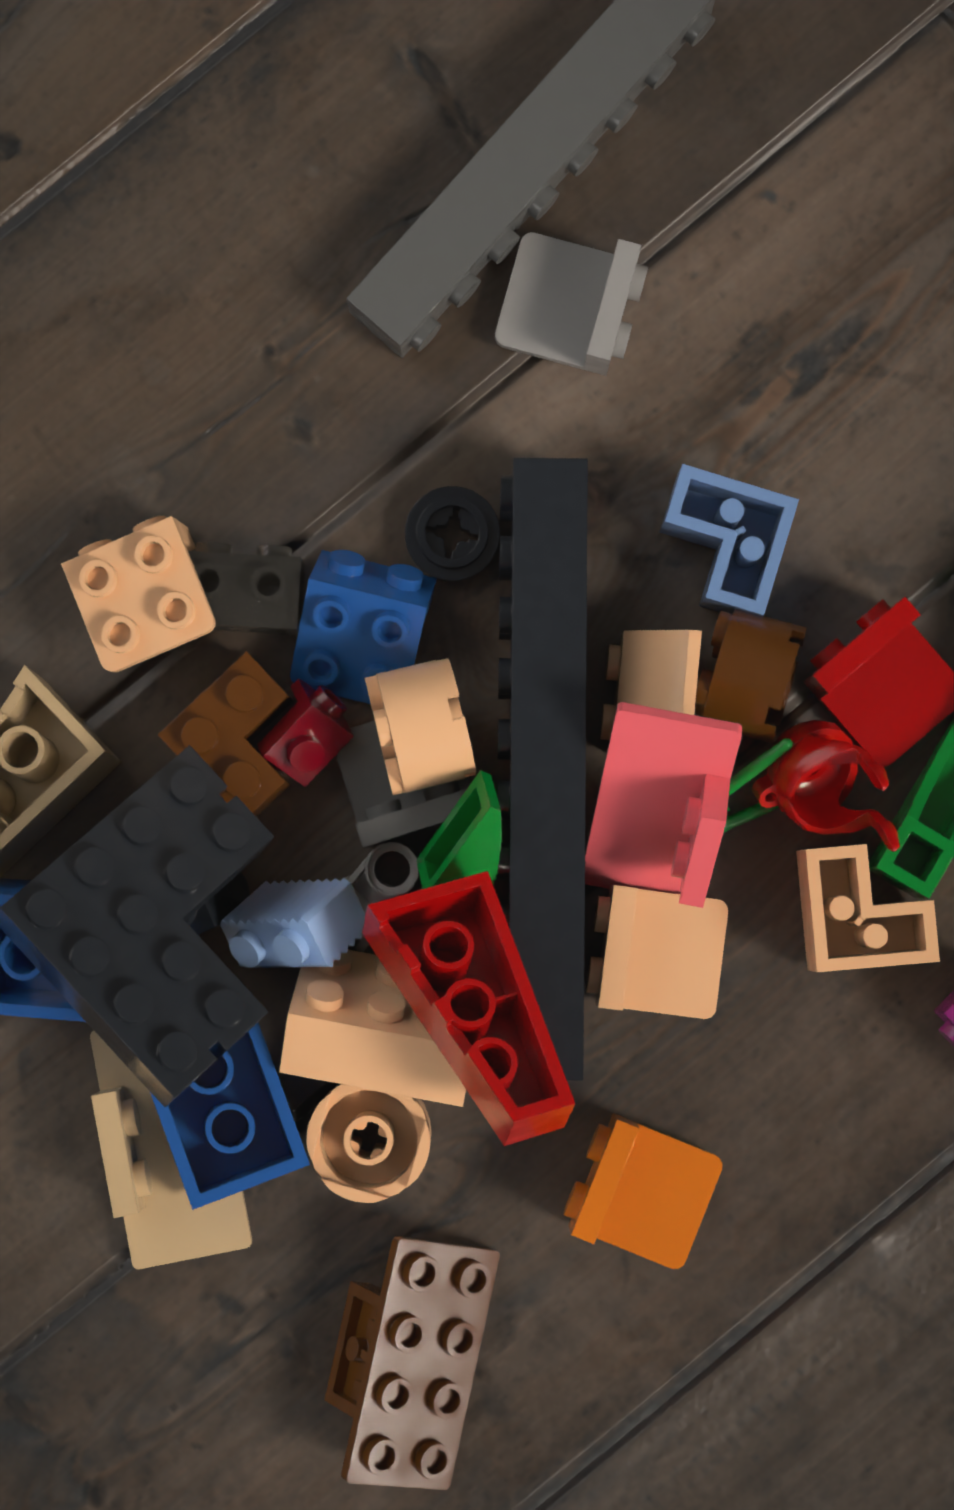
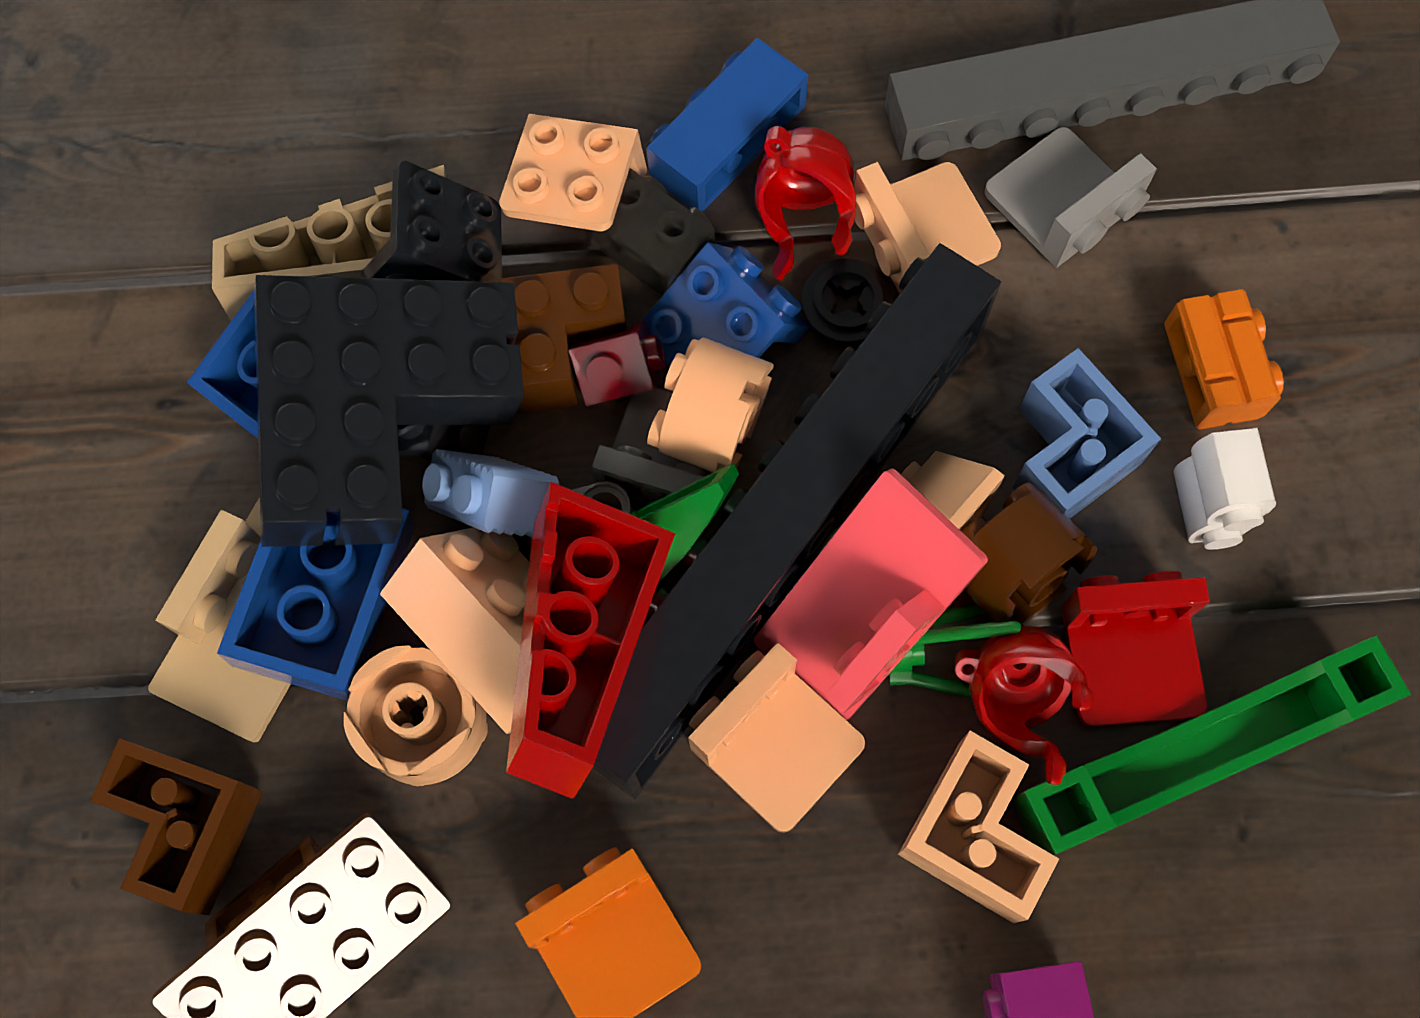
camera: 40 degrees right, 15 degrees down
(86, 739) = (439, 231): none -> black bracket
(229, 439) = (726, 124): none -> blue brick
(254, 1331) = (192, 825): none -> reddish brown brick
(336, 437) = (804, 172): none -> red hair
(469, 417) = (920, 213): none -> light nougat bracket
(799, 371) = (1223, 359): none -> orange brick
(874, 503) = (1224, 488): none -> white brick

